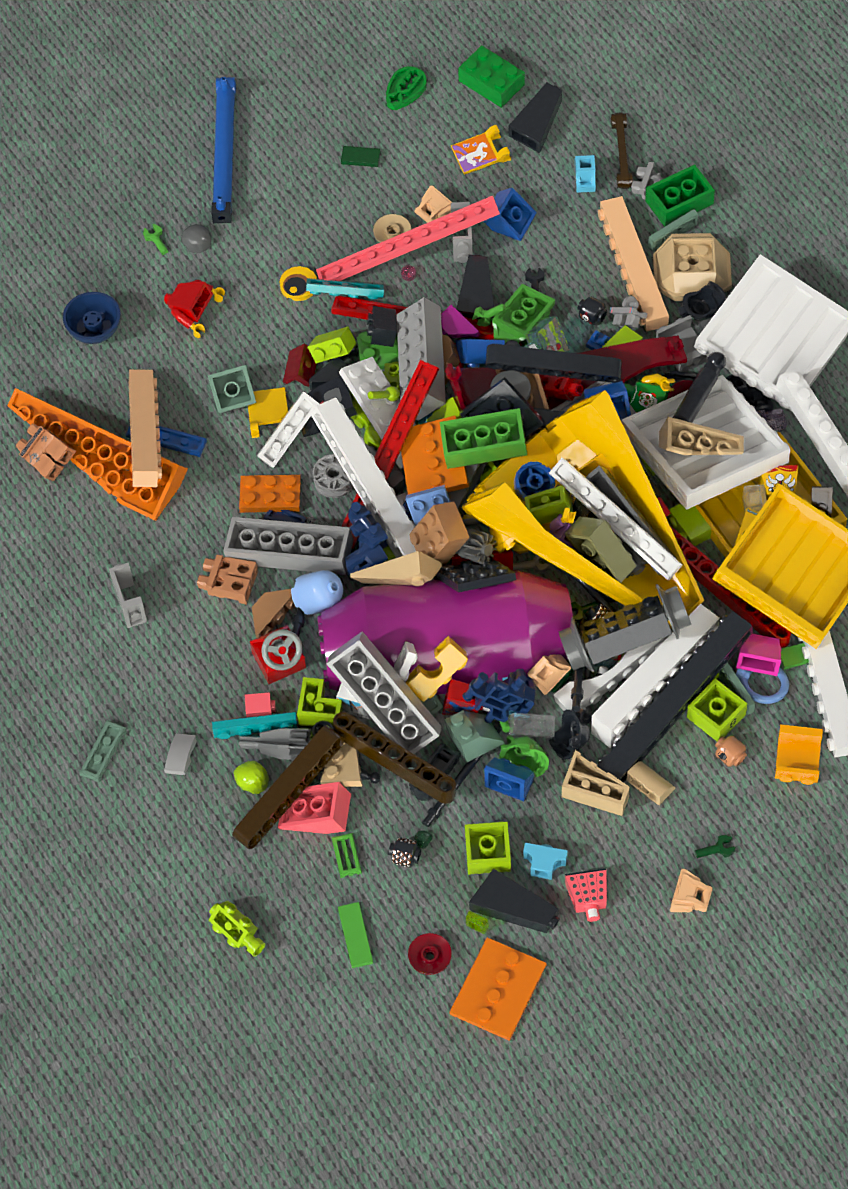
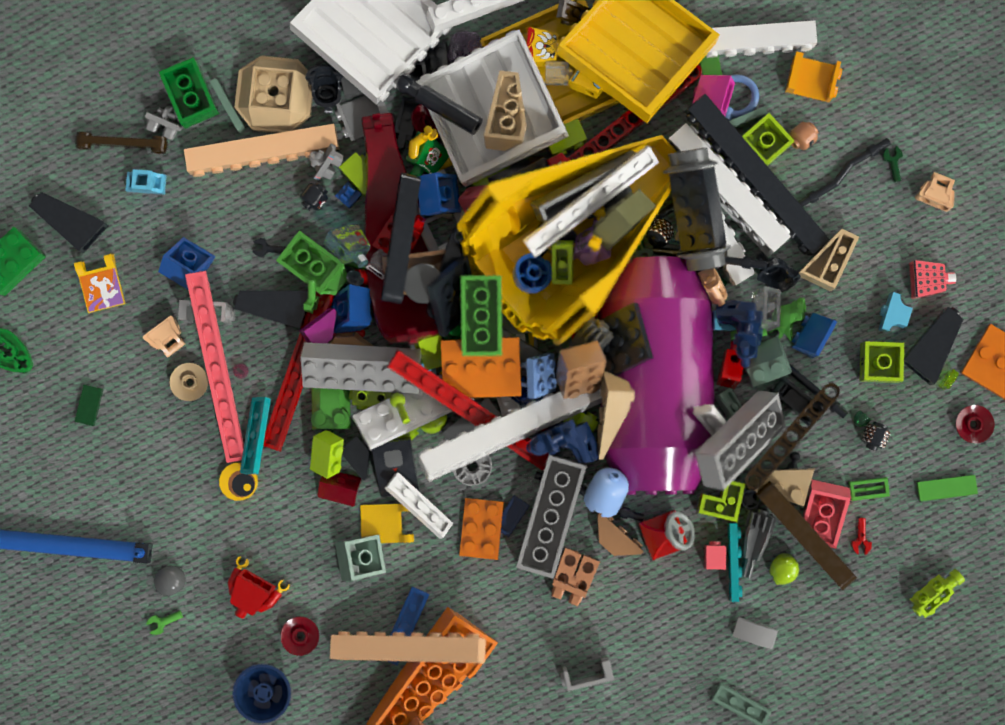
camera: 80 degrees left, 25 degrees up
(149, 341) = (291, 641): none -> dark red dish
(289, 852) = (861, 538): none -> red bar
(382, 326) = (313, 402): black brick -> none
(425, 682) = (709, 375): yellow arch -> none
(649, 782) = (827, 208): tan brick -> none
(724, 822) = (871, 151): none -> black bar

